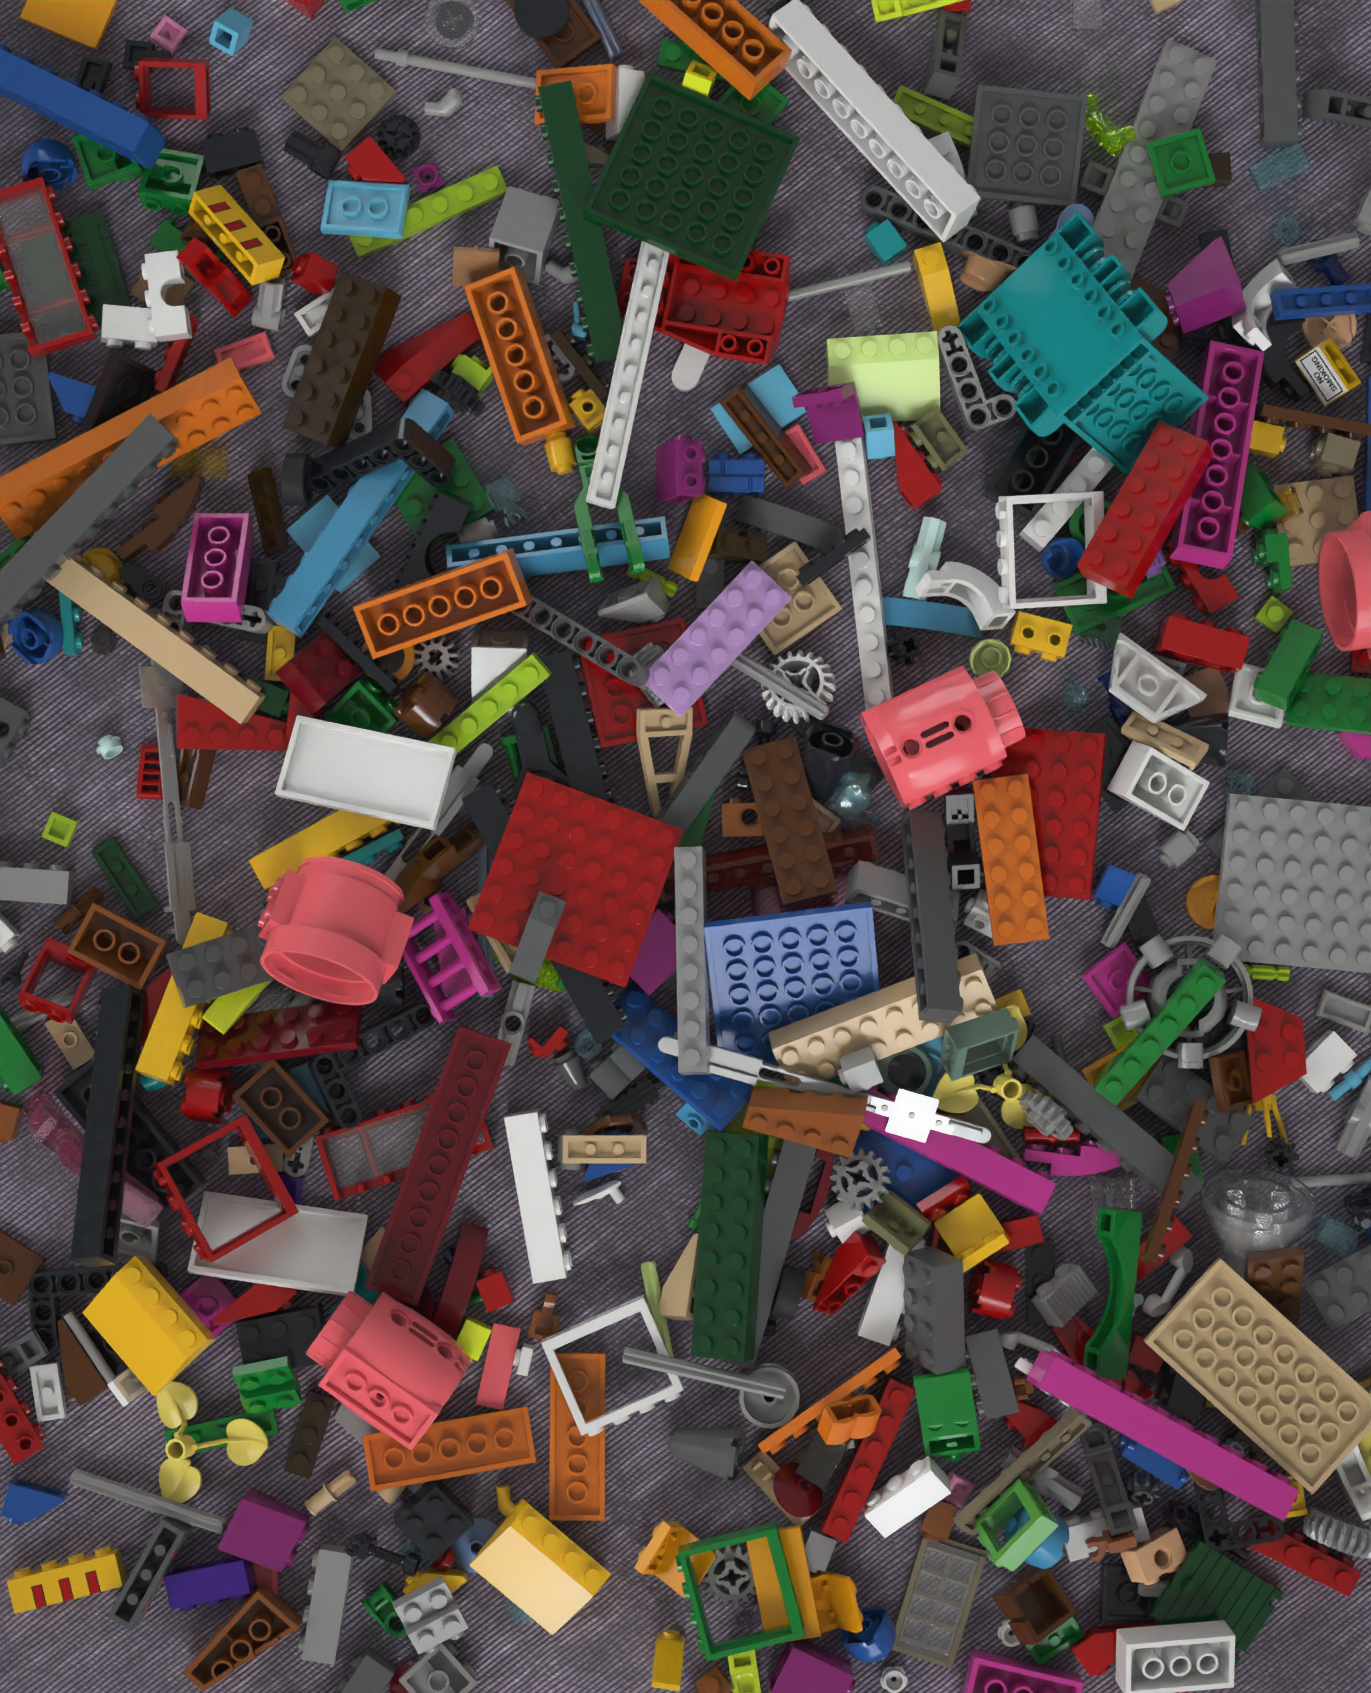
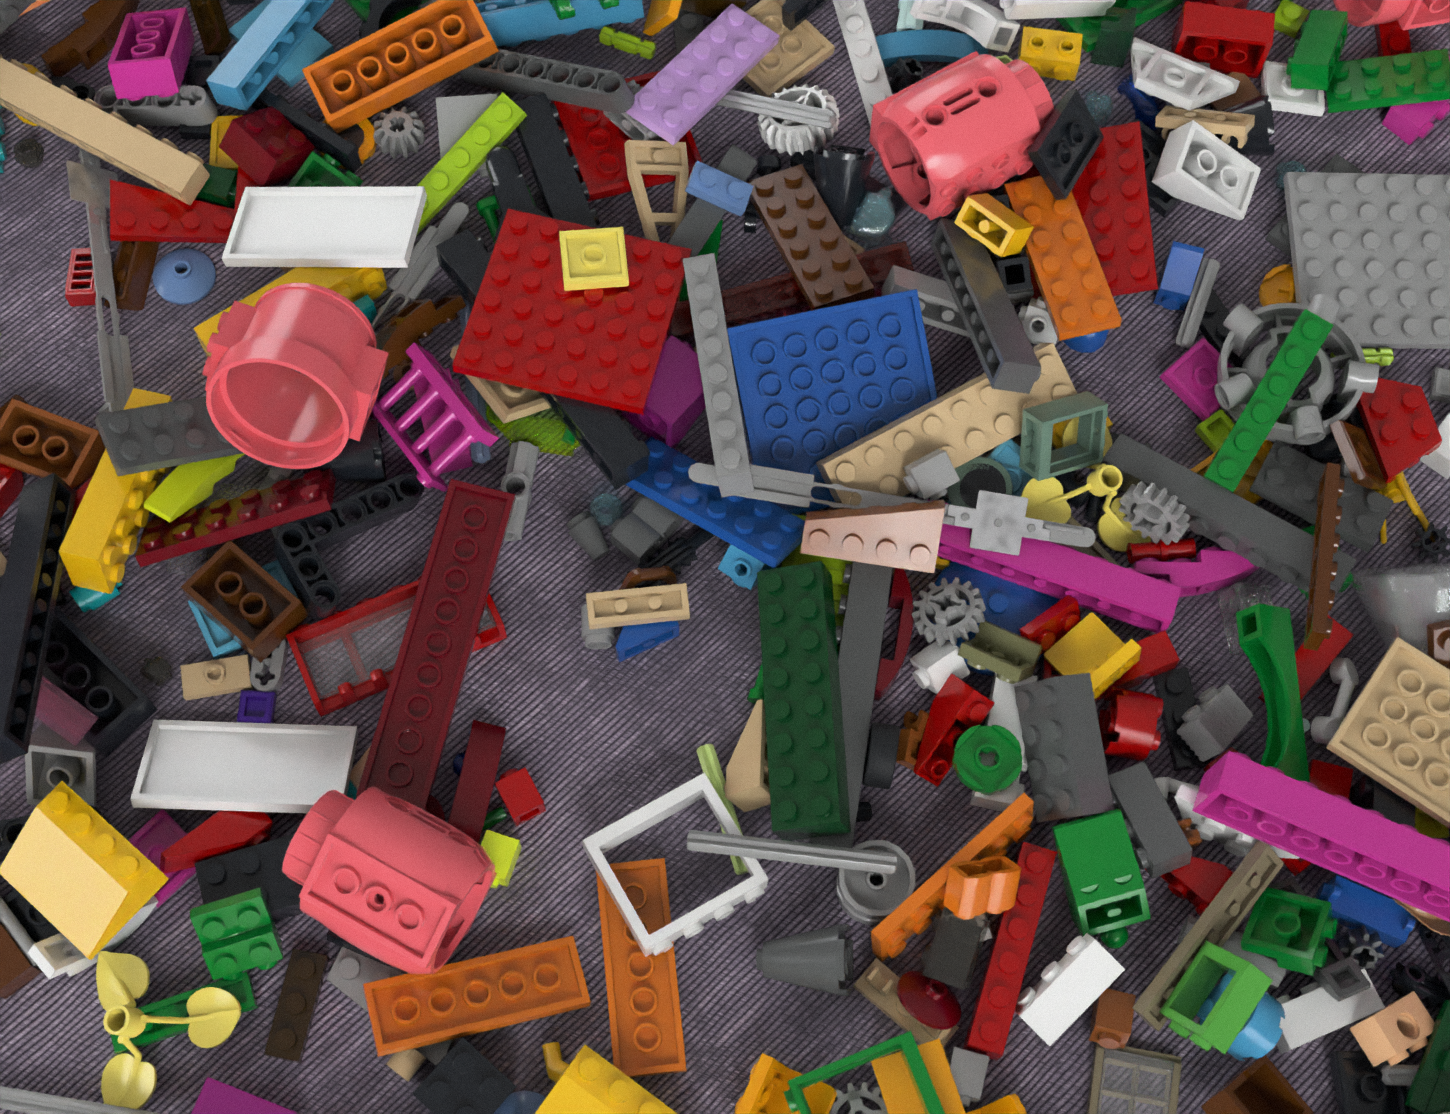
camera: 10 degrees left, 20 degrees down
(109, 746) = (35, 253): light aqua plate -> none
(125, 878) = (53, 385): dark green tile -> none
(208, 1095) = (154, 600): red brick -> none
(249, 789) = (188, 286): none -> medium blue dish
(266, 1169) = (221, 666): red window -> none
(330, 1492) = (327, 1076): tan axle -> none
(425, 704) = (391, 165): reddish brown brick -> none
(498, 1366) = (532, 892): coral tile -> none
(523, 1359) = (563, 876): white plate -> none
(536, 1195) = (564, 681): white brick -> none
(537, 936) = (535, 354): dark grey slope -> none
(544, 1321) = (583, 825): dark orange plate -> none
(556, 1042) = (566, 507): red bracket -> none
(597, 837) = (593, 258): none -> light yellow tile
(600, 1191) = (640, 669): white bar -> none
(637, 602) = (614, 51): light grey slope -> none
(716, 763) = (719, 188): none -> medium blue plate
(732, 823) = (750, 266): dark orange brick -> none
(871, 1326) = (987, 778): none -> green plate
(954, 831) = (993, 224): none -> yellow brick
(960, 1489) = (1132, 979): bright pink tile -> none
(1030, 763) = (1065, 144): none -> black plate
(1087, 1473) = (1290, 930): none -> green plate
(1118, 1544) = (1346, 1010): dark orange plate -> none
(1178, 849) = (1241, 240): light grey brick -> none

